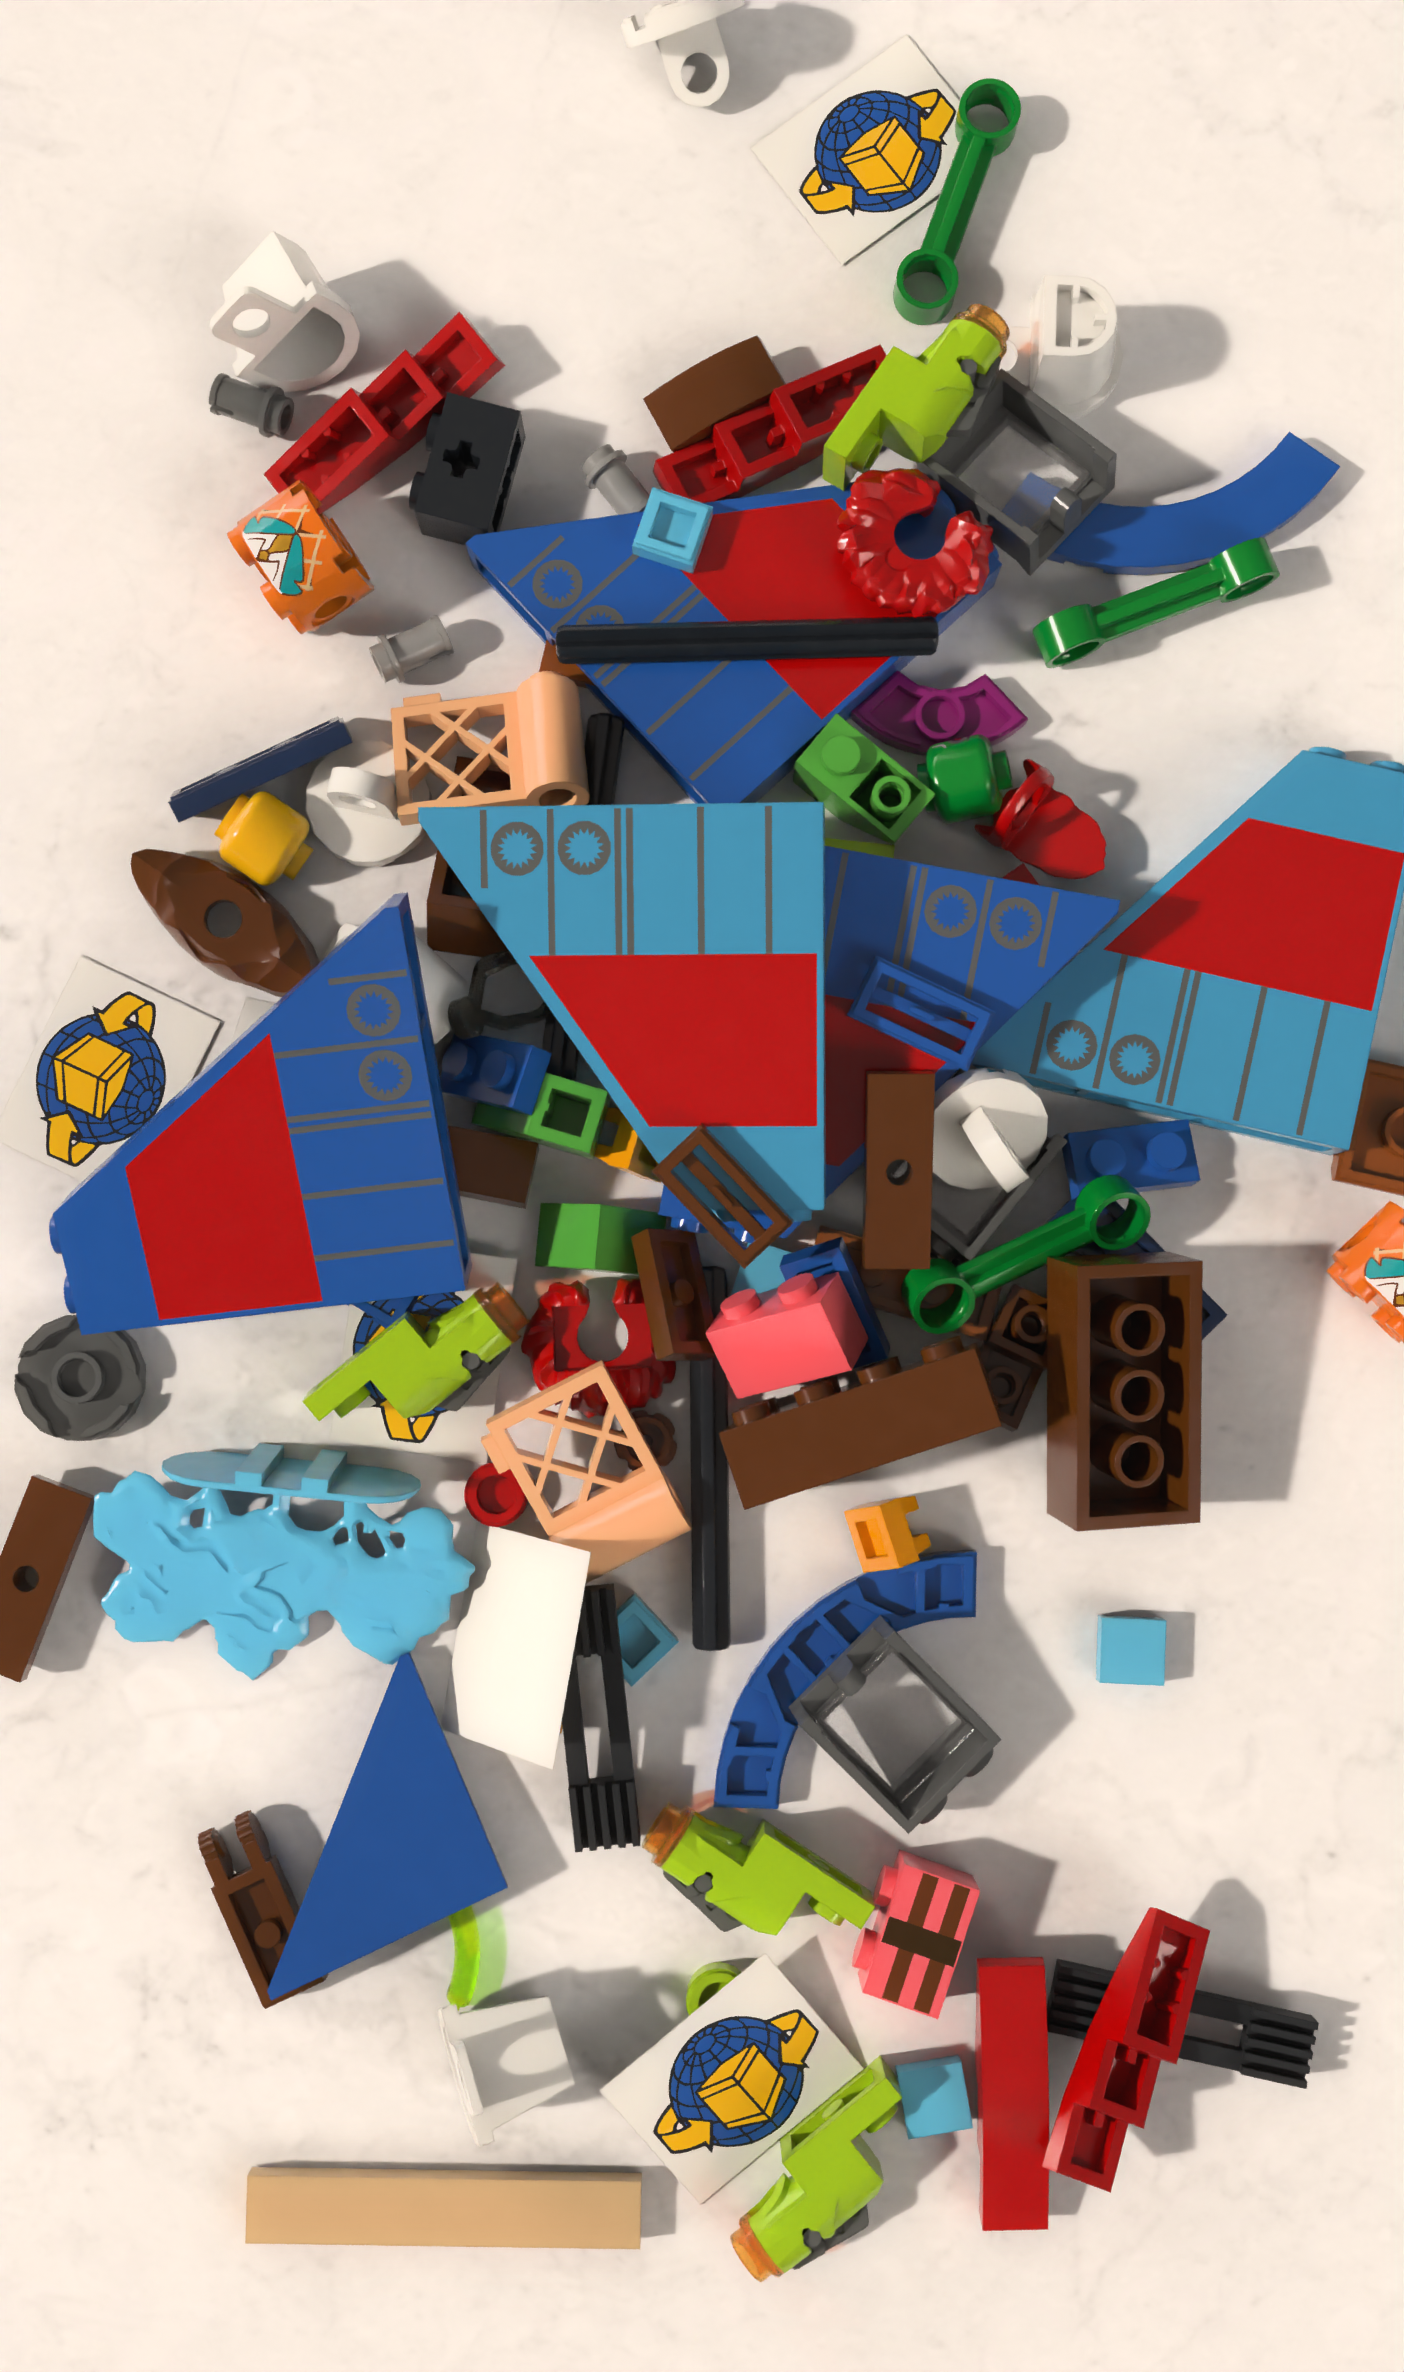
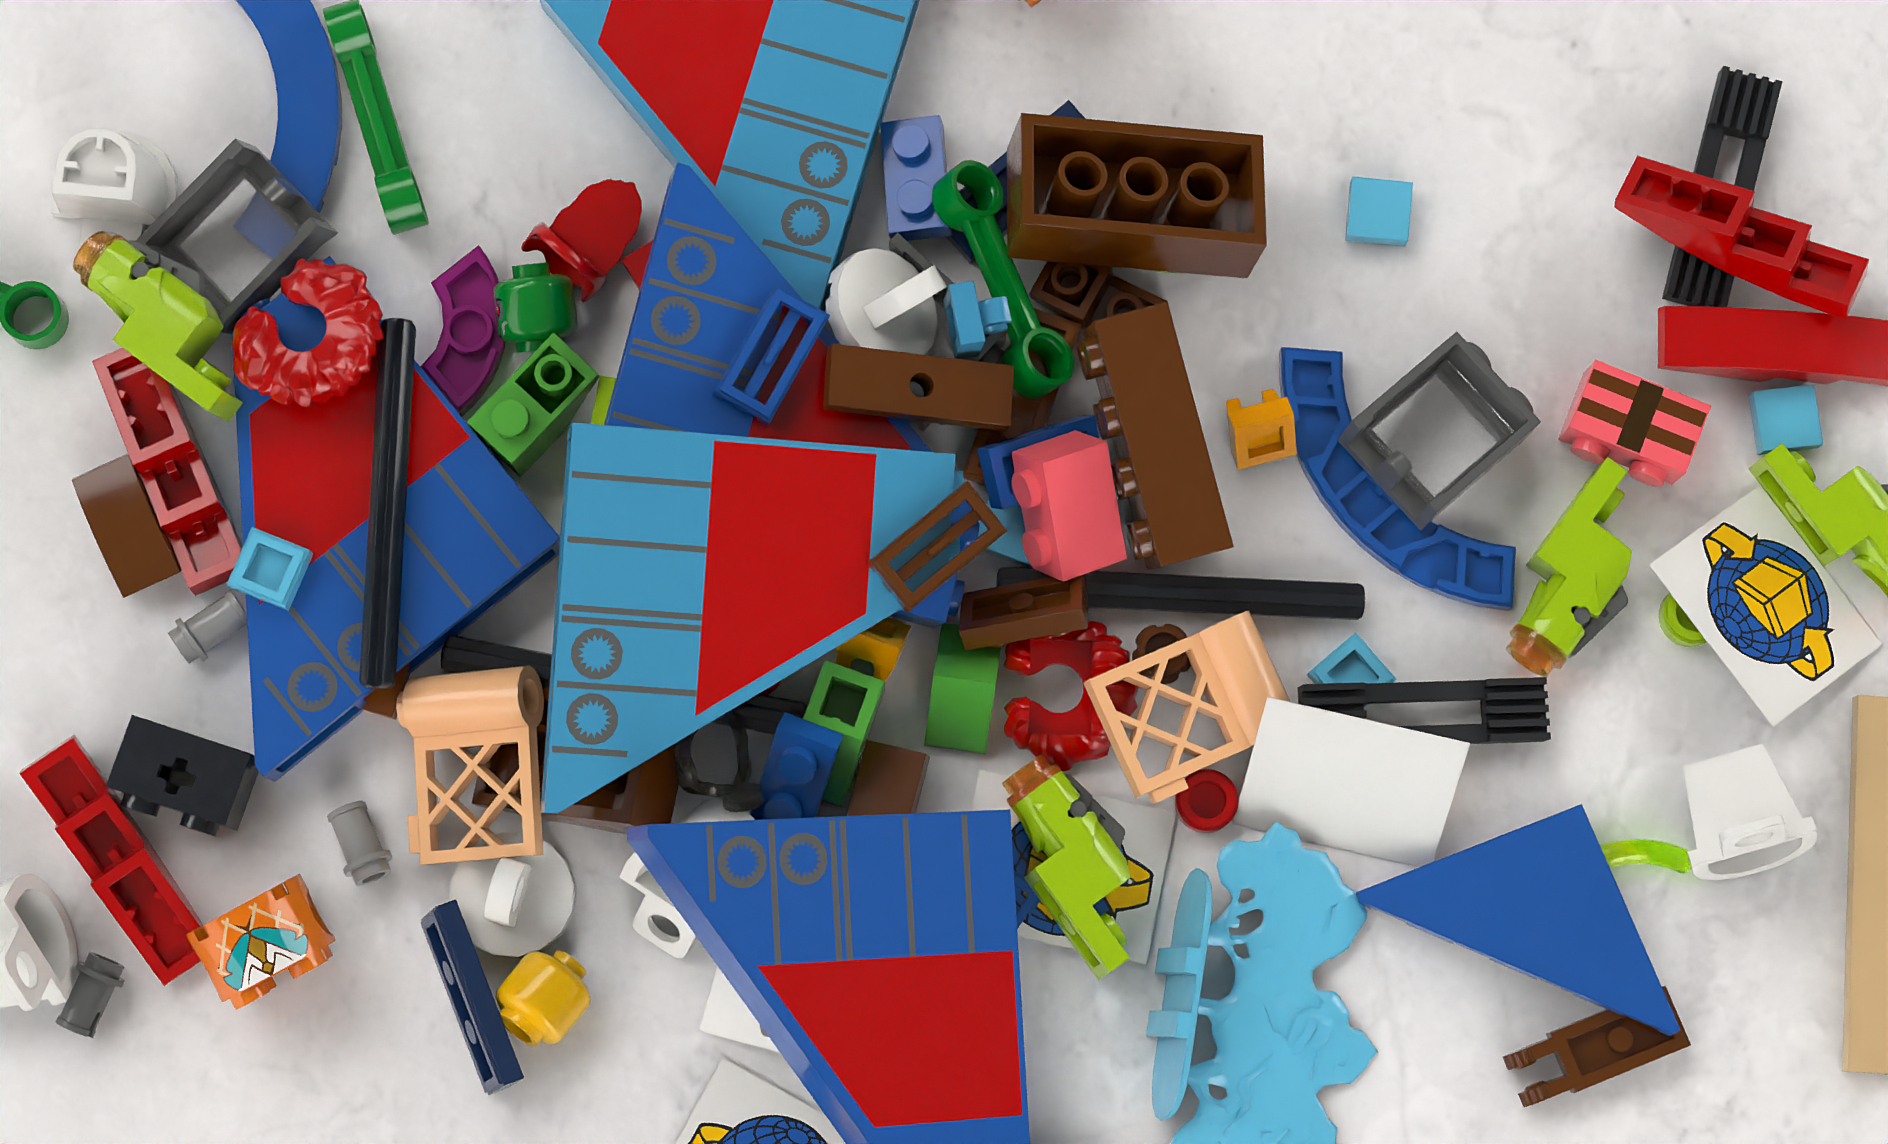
camera: 90 degrees left, 5 degrees down
(266, 949) = (591, 1083): reddish brown piece -> none
(976, 1222) = (972, 319): none -> dark azure tile

